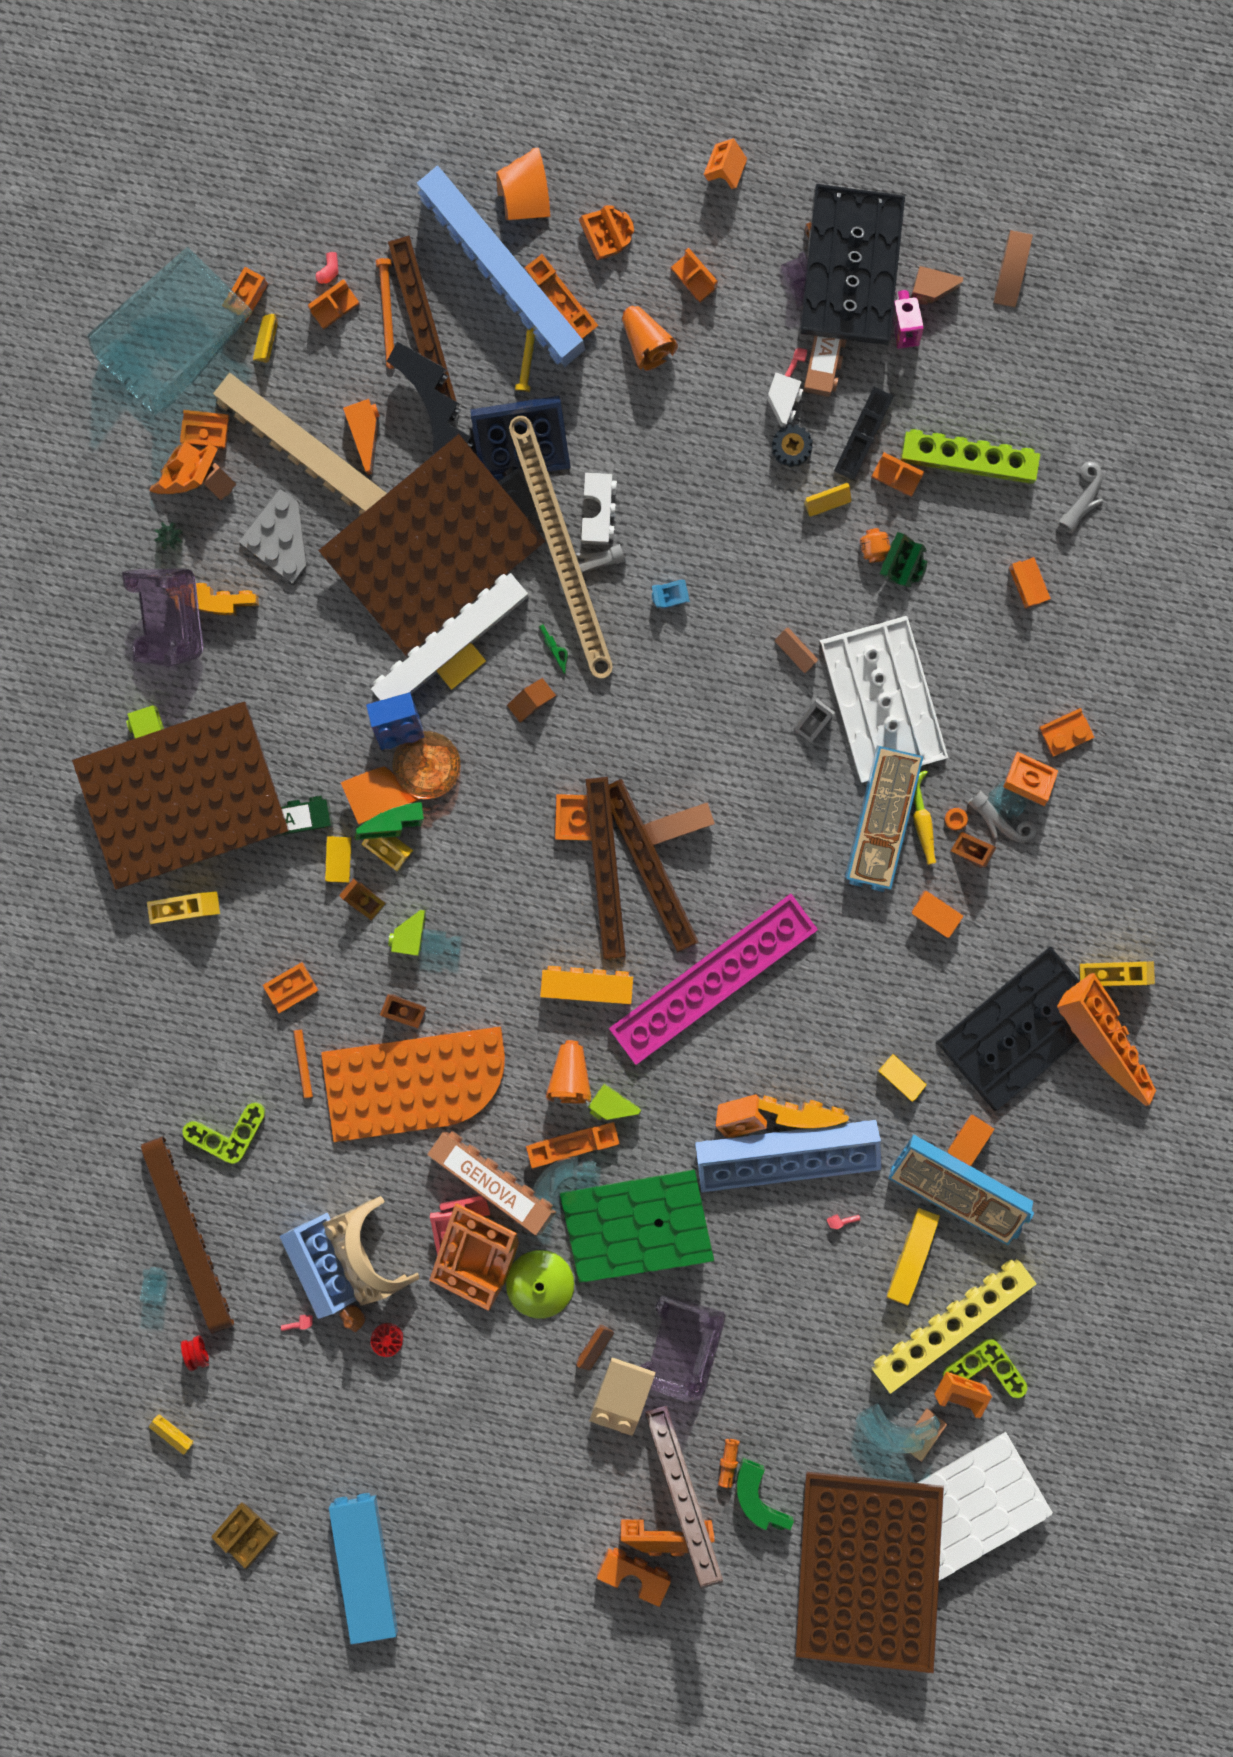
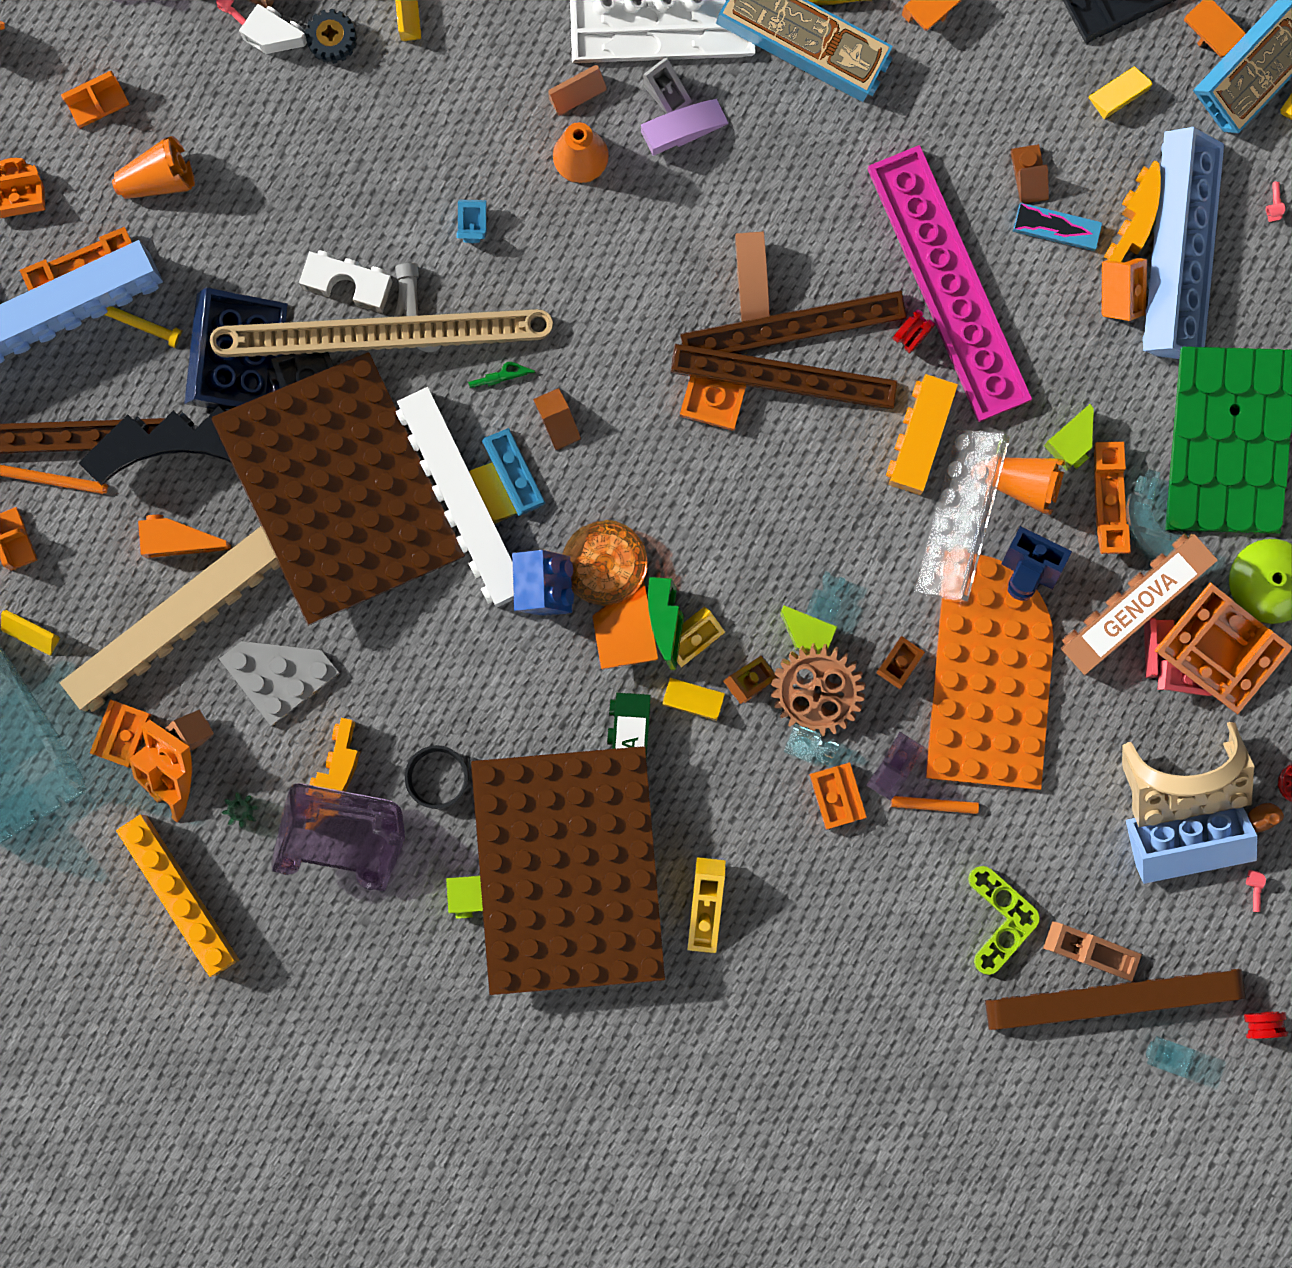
camera: 75 degrees left, 5 degrees down
(92, 505) = (177, 895): none -> light orange brick
(208, 672) = (409, 770): none -> black tyre
(219, 1209) = (1092, 951): none -> nougat slope
(324, 954) = (806, 744): none -> clear light blue plate
(324, 1026) = (895, 766): none -> clear purple slope
(384, 951) = (821, 665): none -> nougat gear
(480, 677) = (513, 472): none -> dark azure tile
(506, 1095) = (1033, 562): none -> dark blue brick
(530, 1031) = (962, 514): none -> clear plate
(672, 960) = (911, 328): none -> red wheel
(743, 674) = (580, 154): none -> orange cone
(780, 1053) = (1057, 226): none -> tile
(788, 741) = (683, 125): none -> lavender slope
(817, 1022) = (1030, 174): none -> dark orange slope

